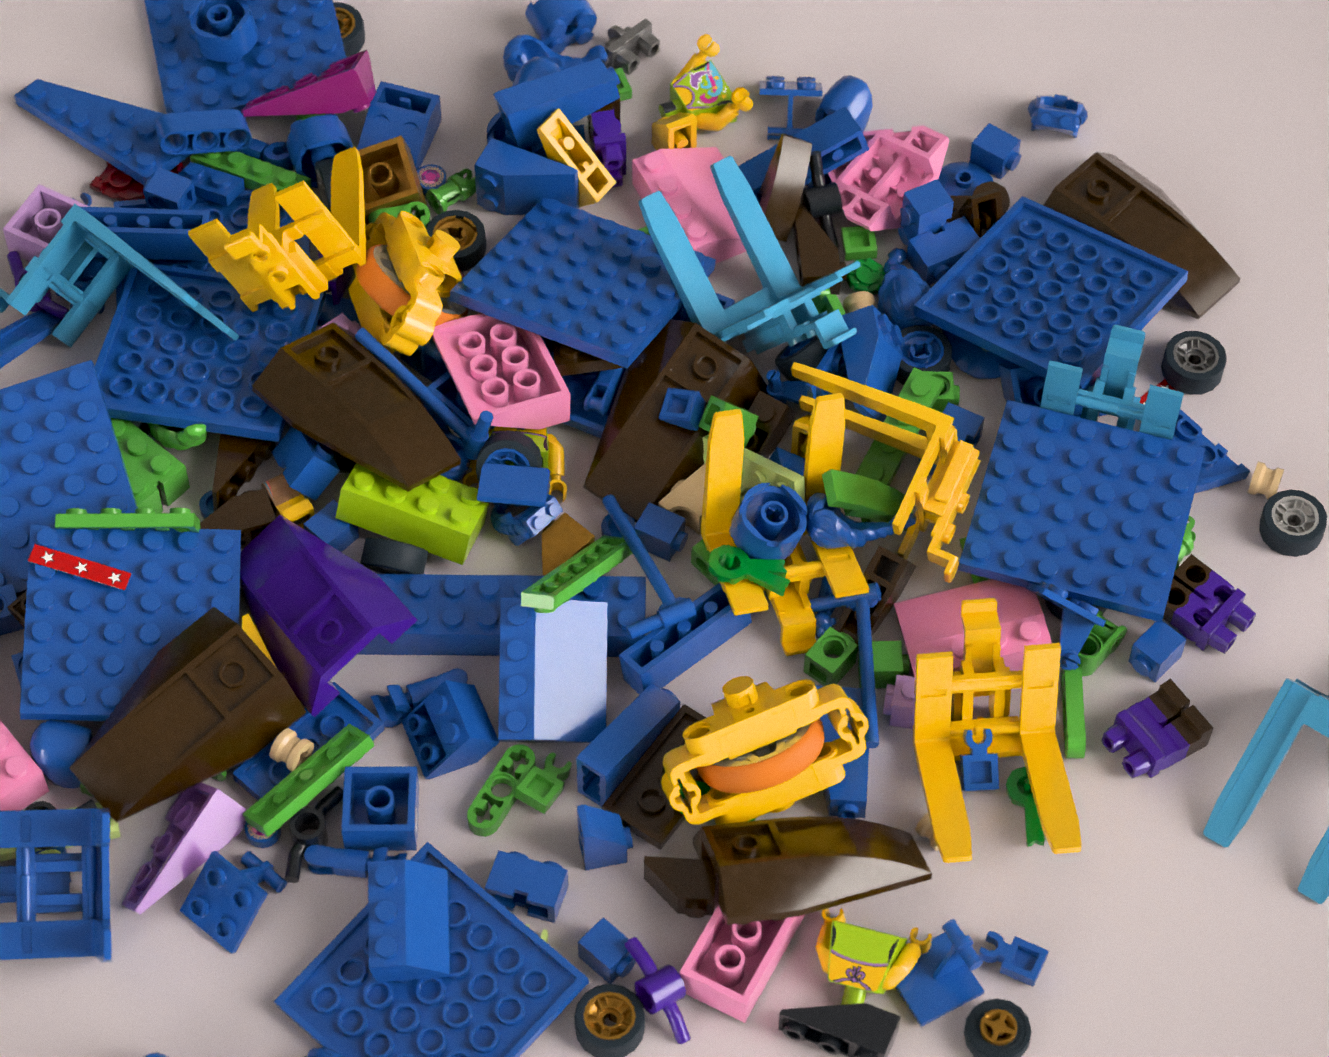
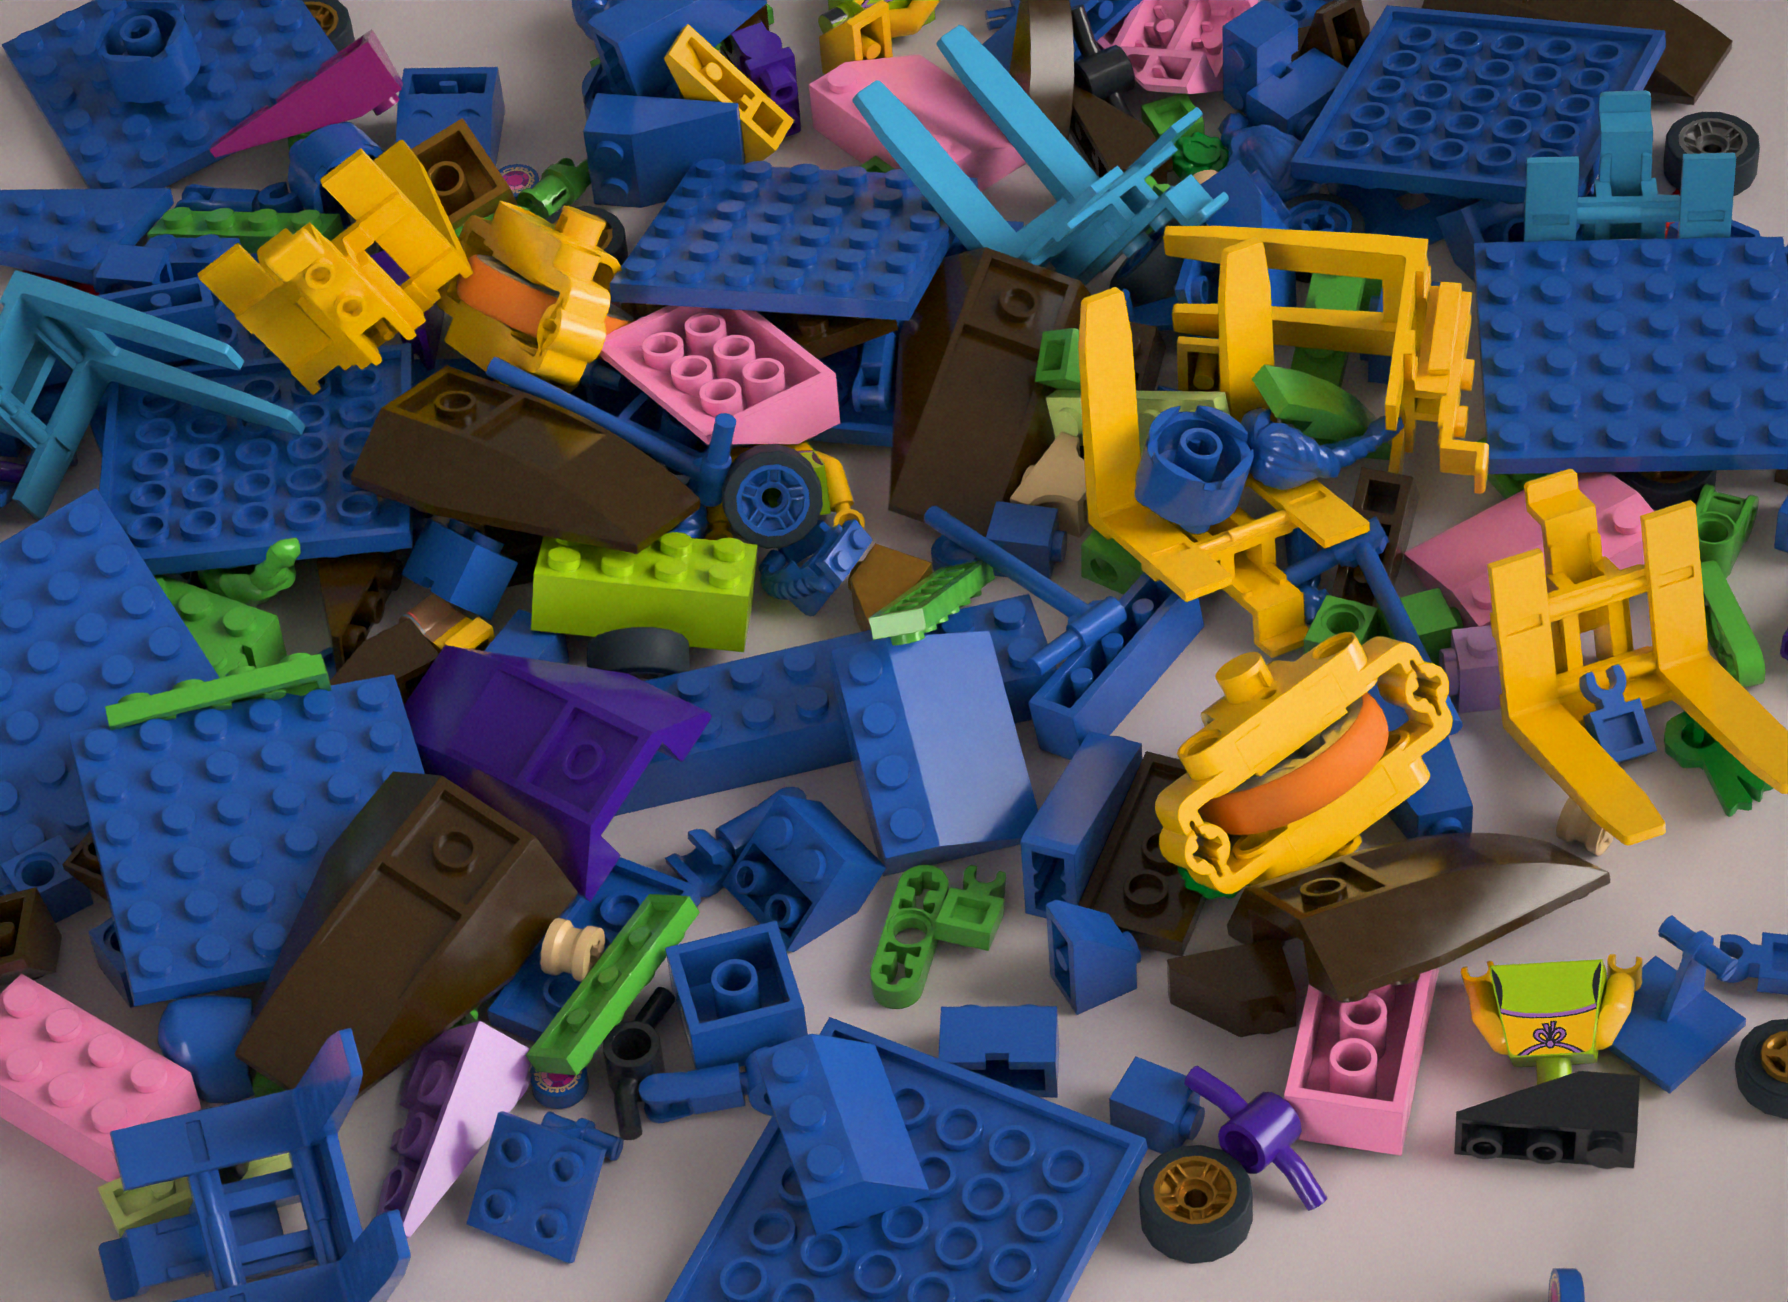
camera: 10 degrees left, 10 degrees down
(79, 567) = (164, 771): red sticker -> none
(202, 132) = (140, 181): blue beam -> none
(514, 485) = (790, 515): blue slope -> none
(683, 408) = (1005, 360): blue slope -> none
(733, 565) = (1162, 537): green piece -> none
(1076, 621) = (1677, 473): blue plate -> none

